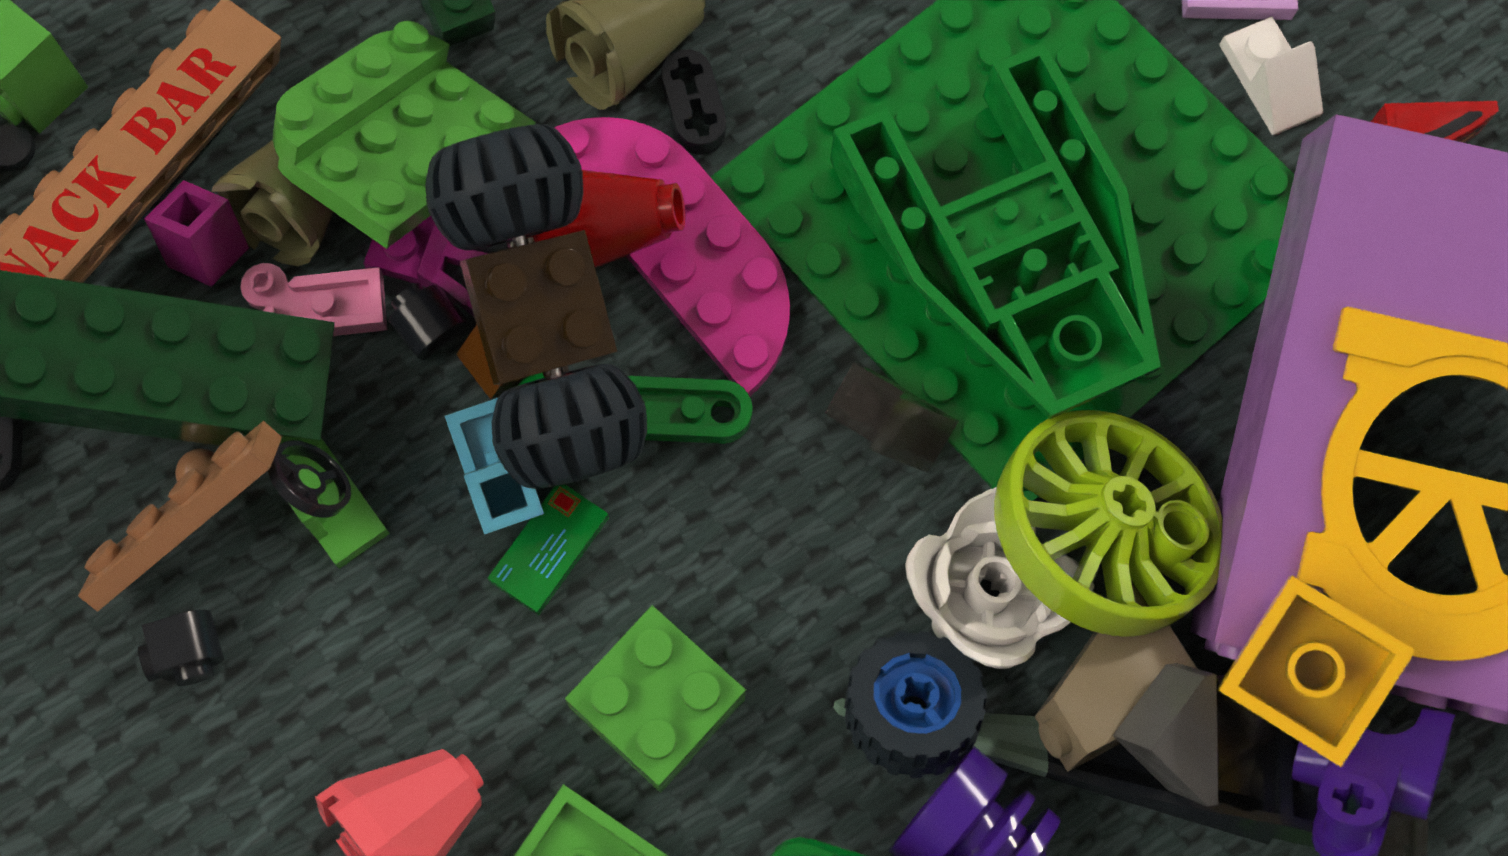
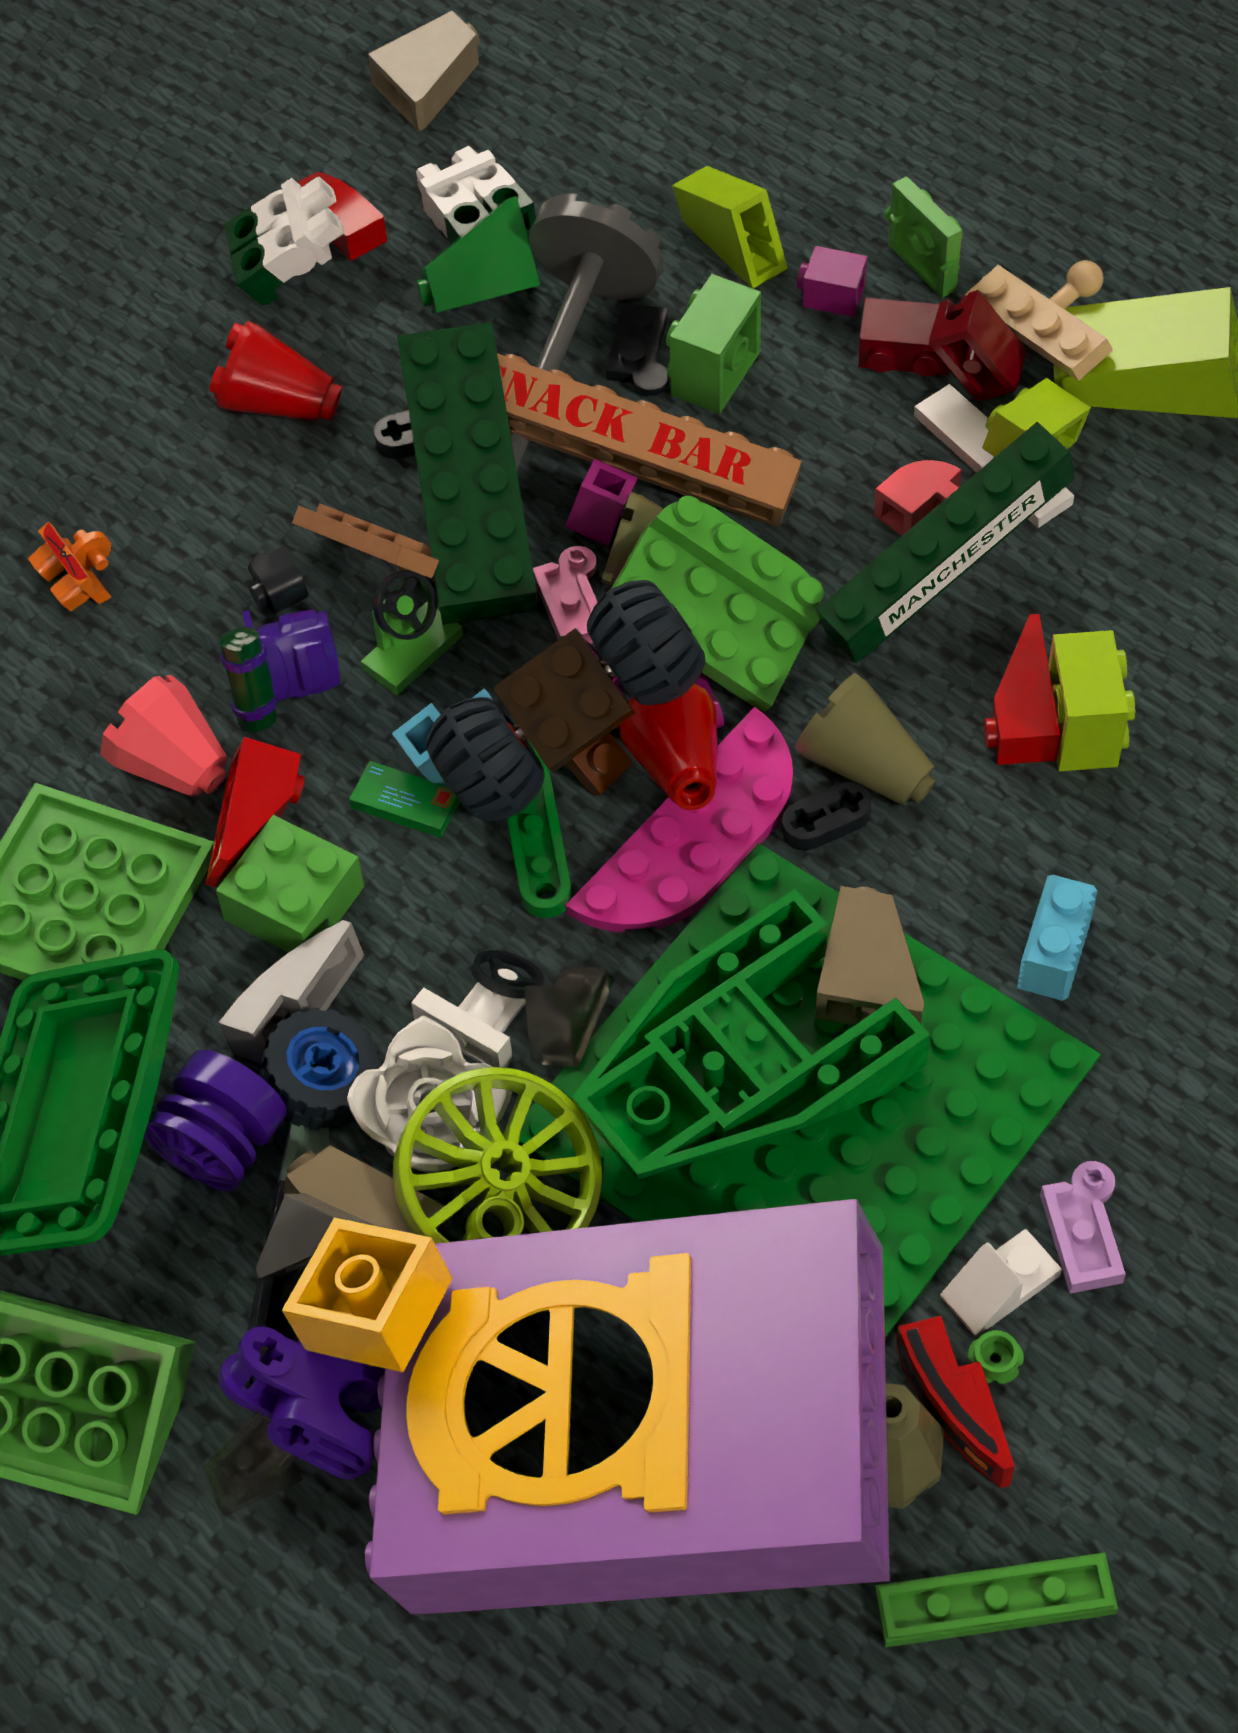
camera: 85 degrees right, 15 degrees down
(322, 660) = (278, 663): none -> dark purple piece
(525, 725) = (257, 786): none -> red slope
(802, 722) = (298, 981): none -> light grey slope
(859, 507) = (486, 1009): none -> white piece
(924, 86) = (866, 960): none -> dark tan slope
(1356, 86) = (999, 1344): none -> bright green plate

